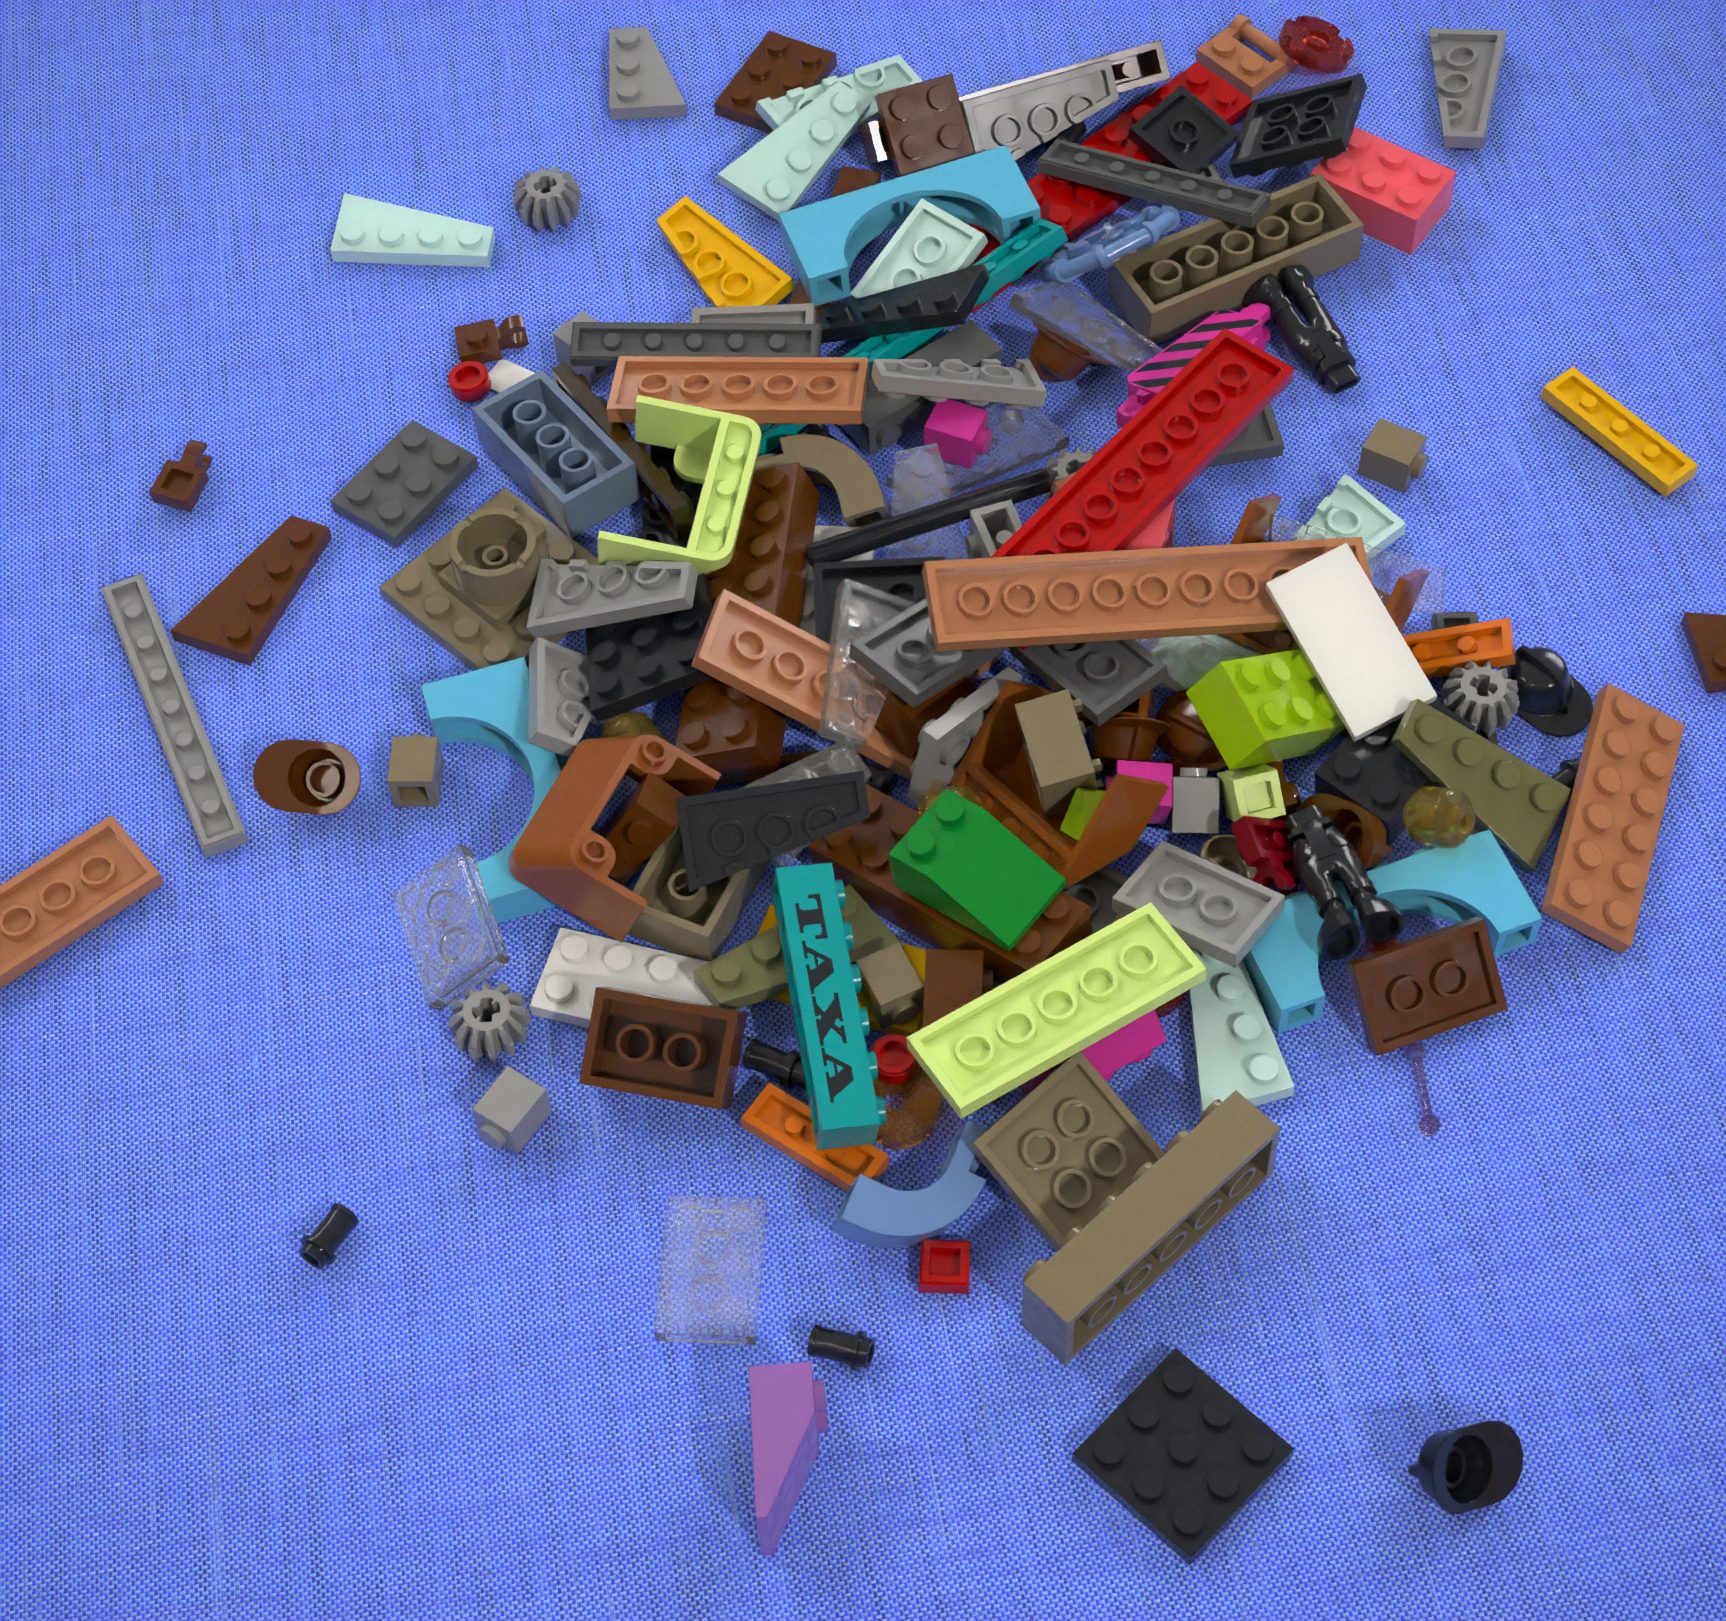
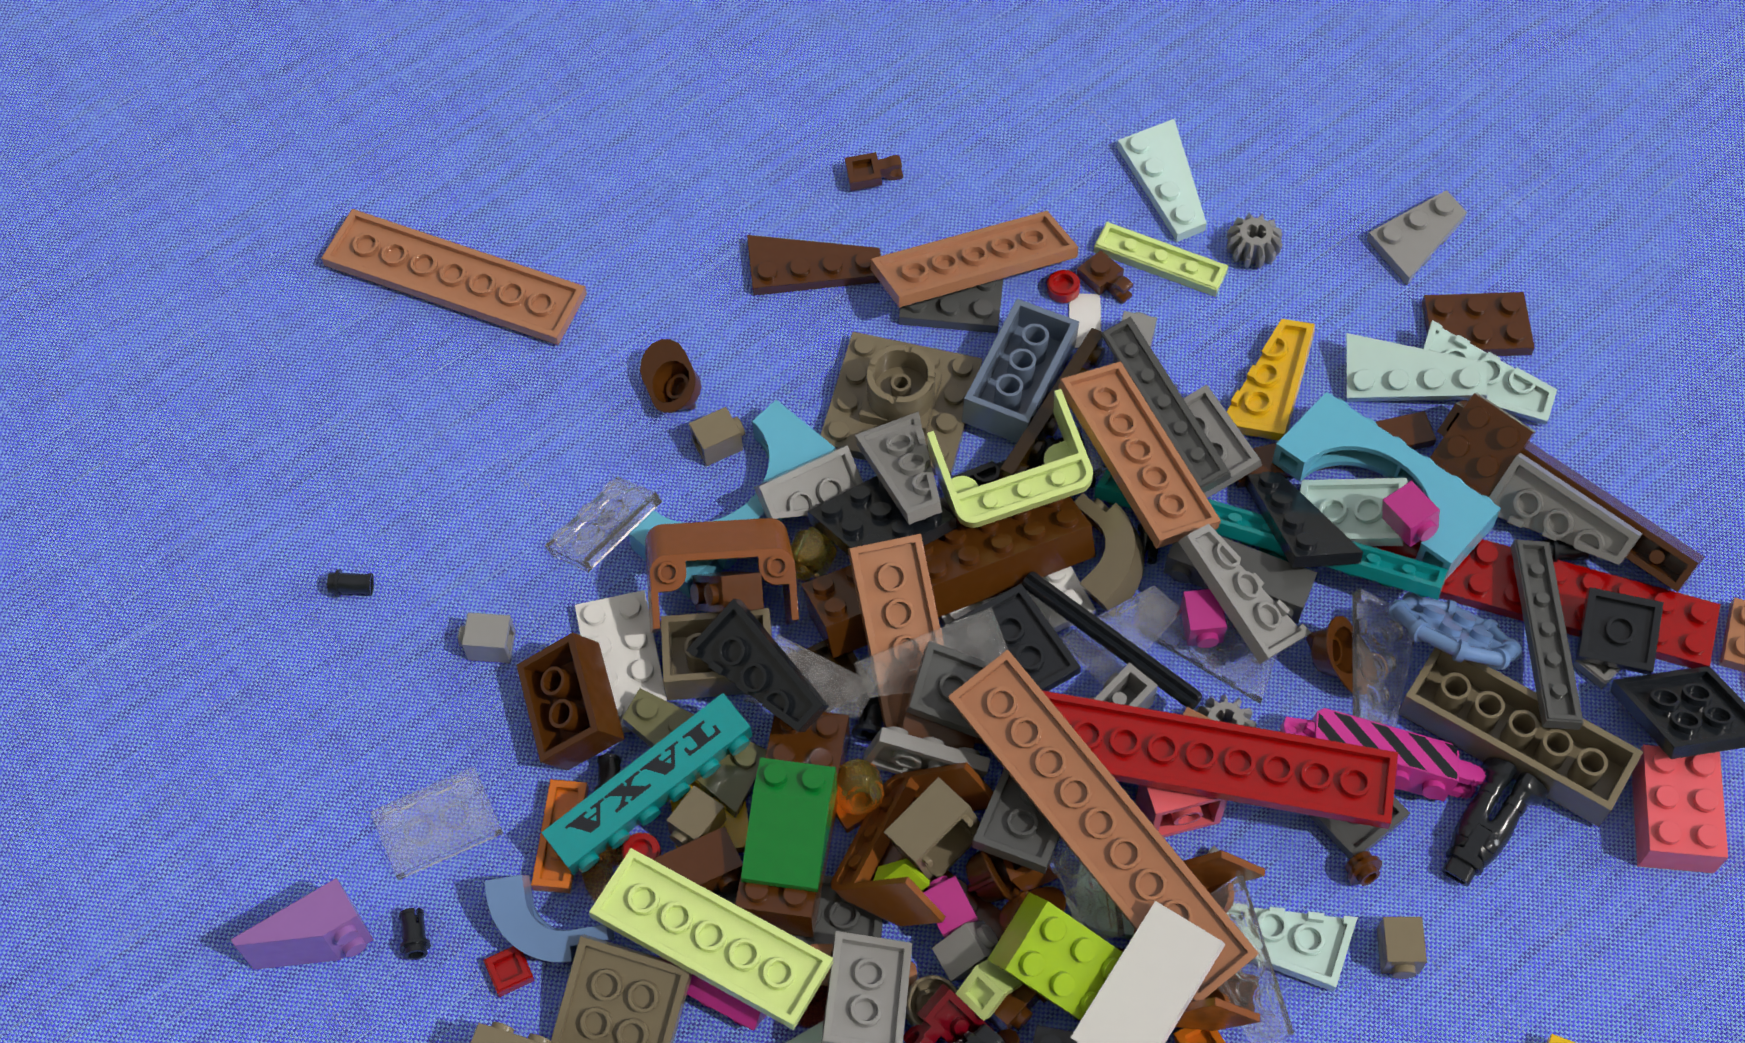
camera: 60 degrees right, 5 degrees up
(174, 716) = (687, 276): light grey tile -> none
(383, 431) = (973, 258): none -> nougat plate
(489, 1021) = (560, 592): light grey gear -> none
(502, 286) = (1161, 259): none -> yellowish green tile
(973, 205) = (1411, 514): none -> dark pink brick
(1297, 446) = (1363, 868): none -> reddish brown plate

